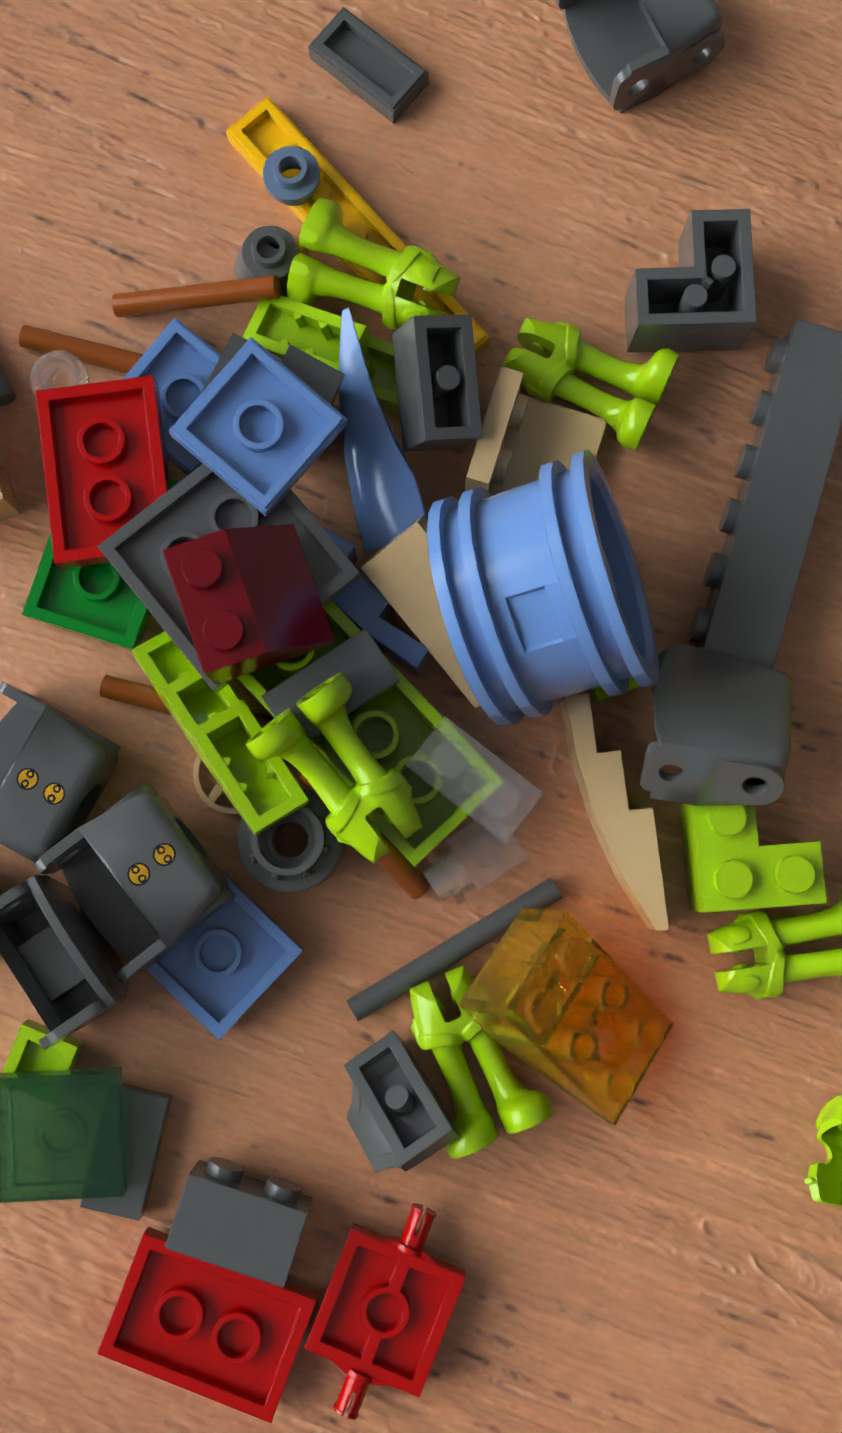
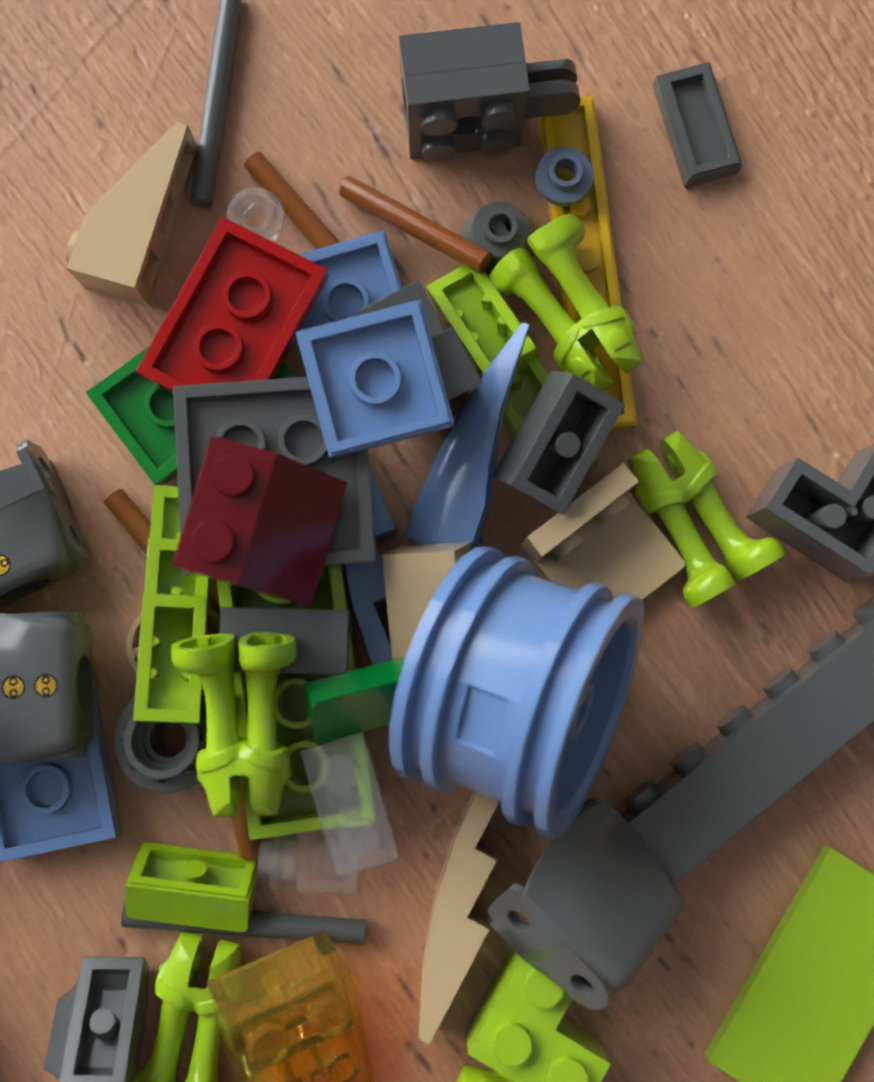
camera: 30 degrees right, 0 degrees up
(171, 152) = (476, 90): none -> dark grey brick
(392, 949) = (191, 887): none -> lime slope
(423, 692) = (352, 700): none -> green slope

